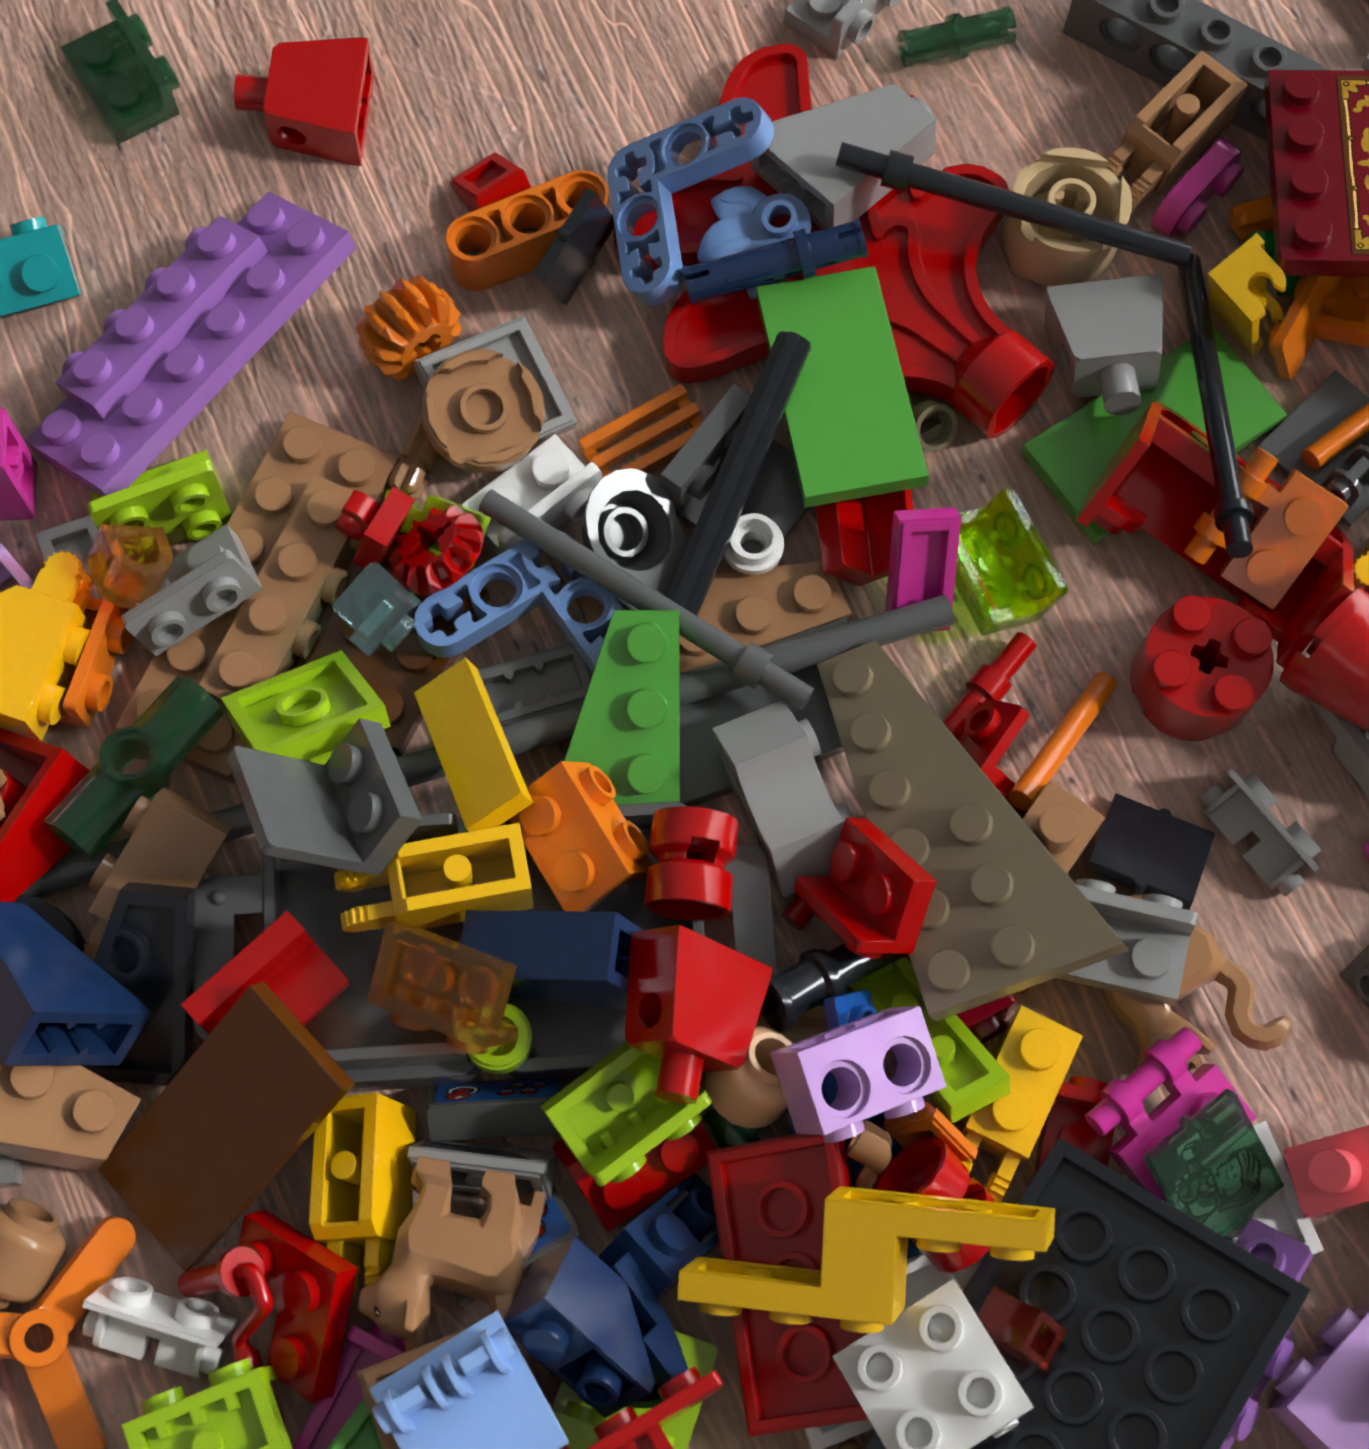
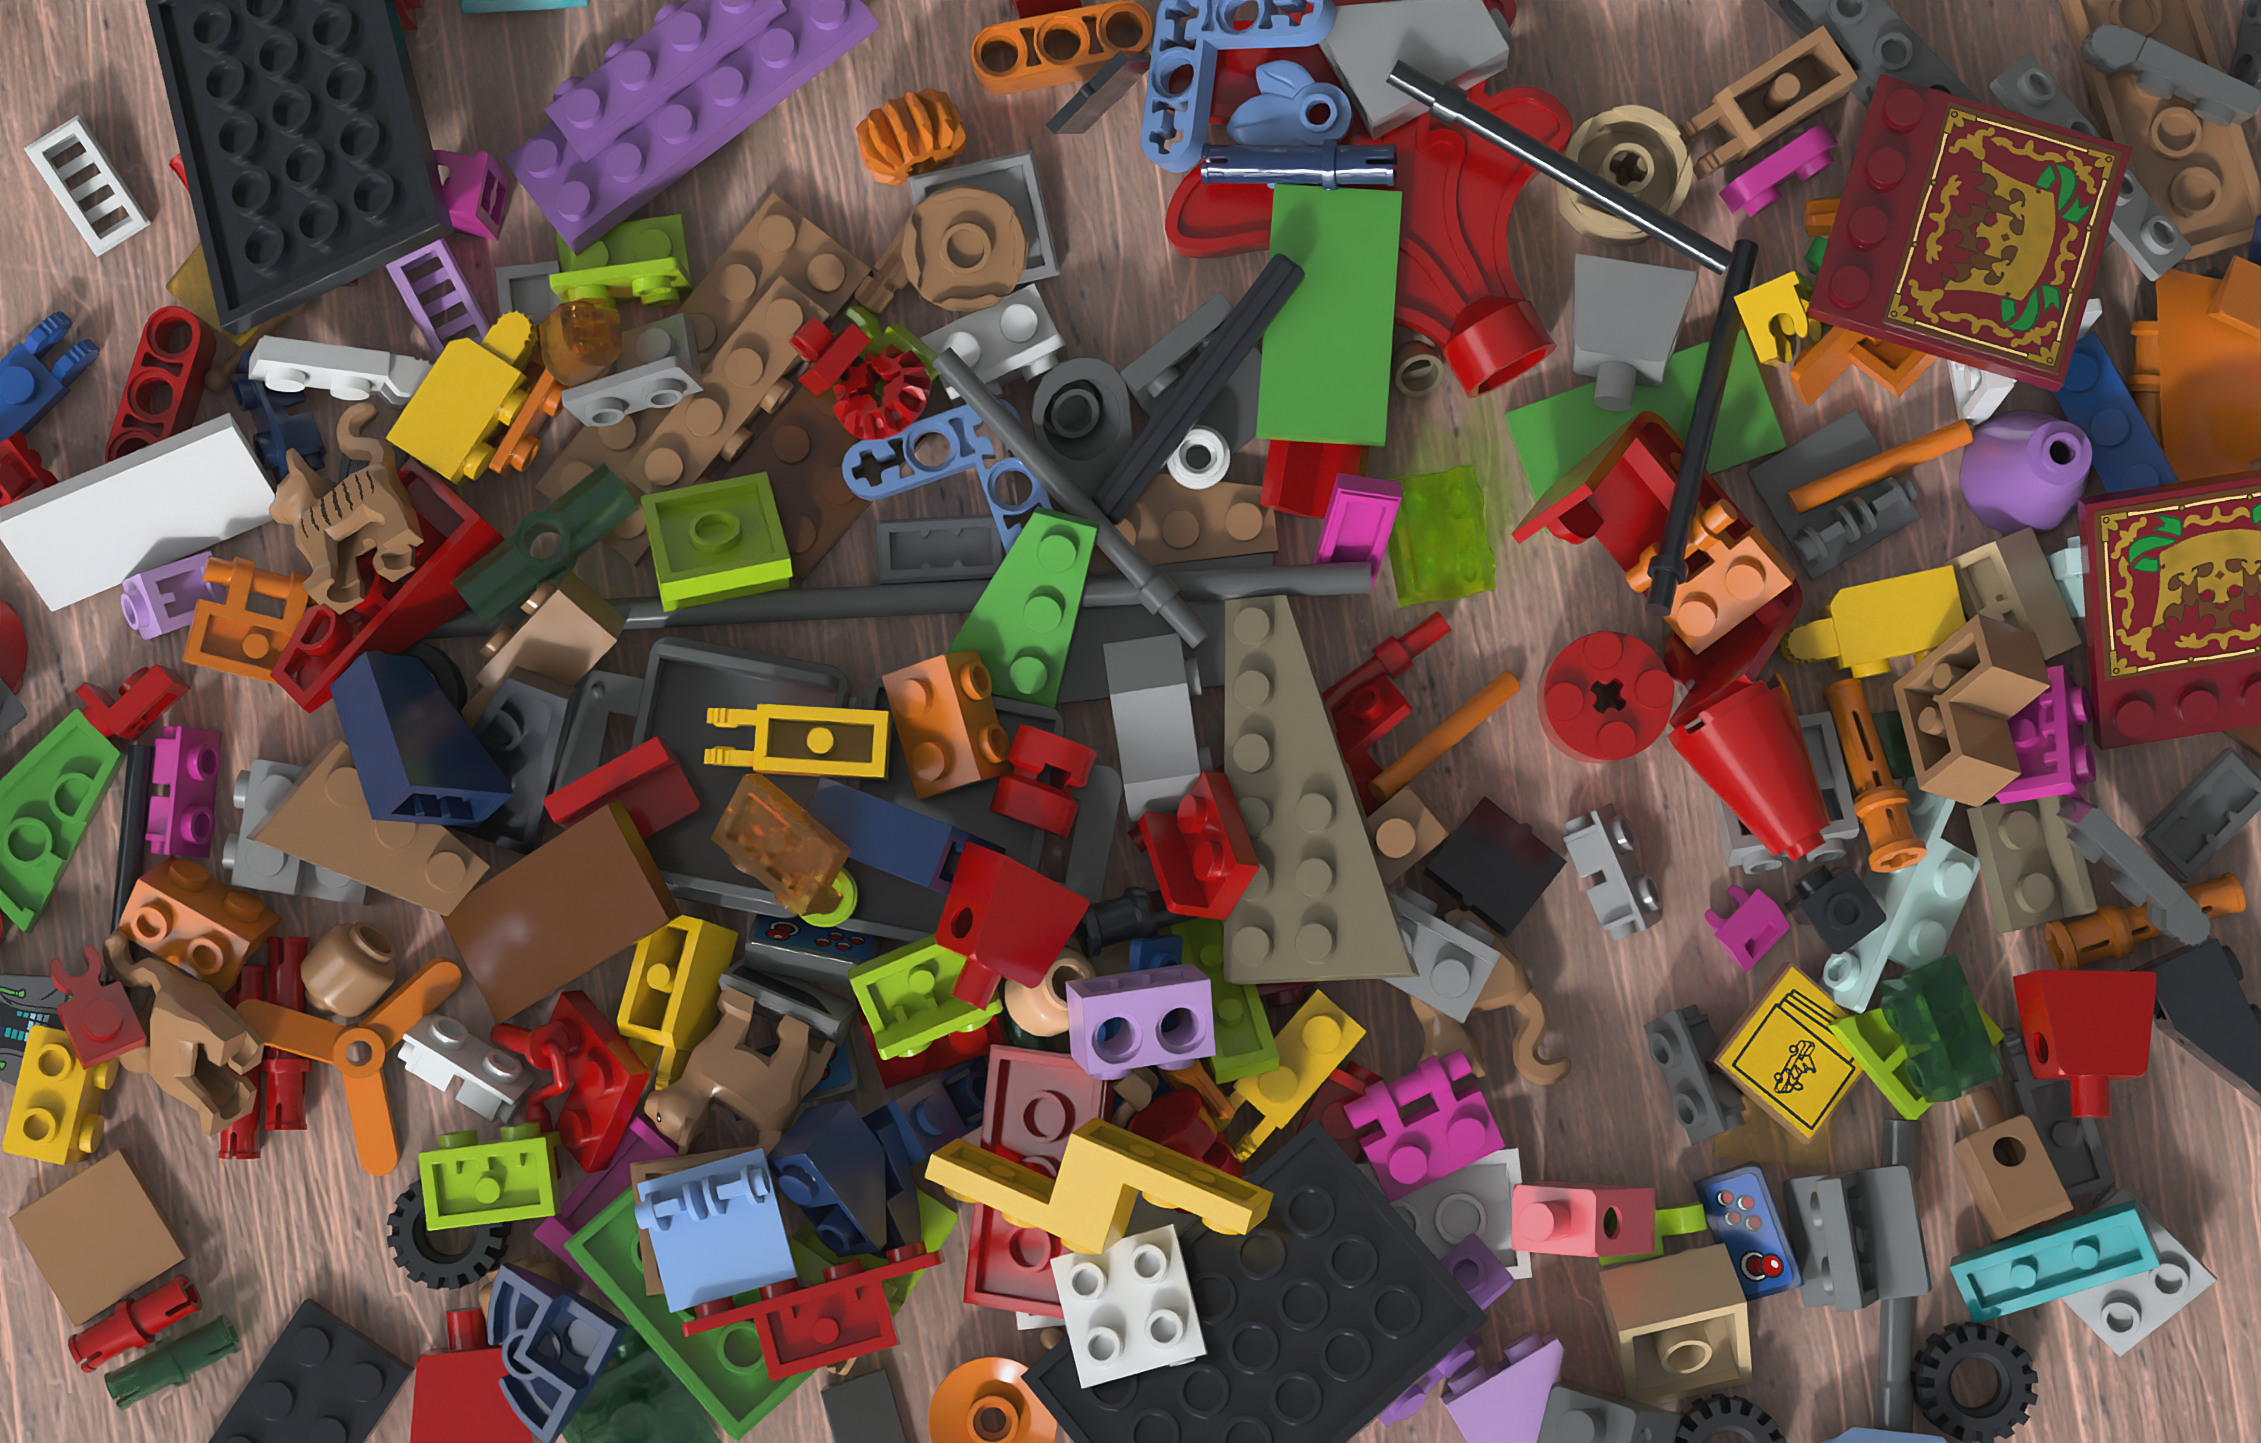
camera: 20 degrees right, 15 degrees up
(332, 814) = (714, 653): dark grey bracket -> none
(377, 609) = (813, 445): clear light blue bracket -> none
(472, 747) = (867, 608): yellow tile -> none
(636, 419) = (1116, 285): orange tile -> none
(1020, 1328) = (1220, 1280): clear red piece -> none
(1215, 1165) = (1447, 1183): clear green piece -> none

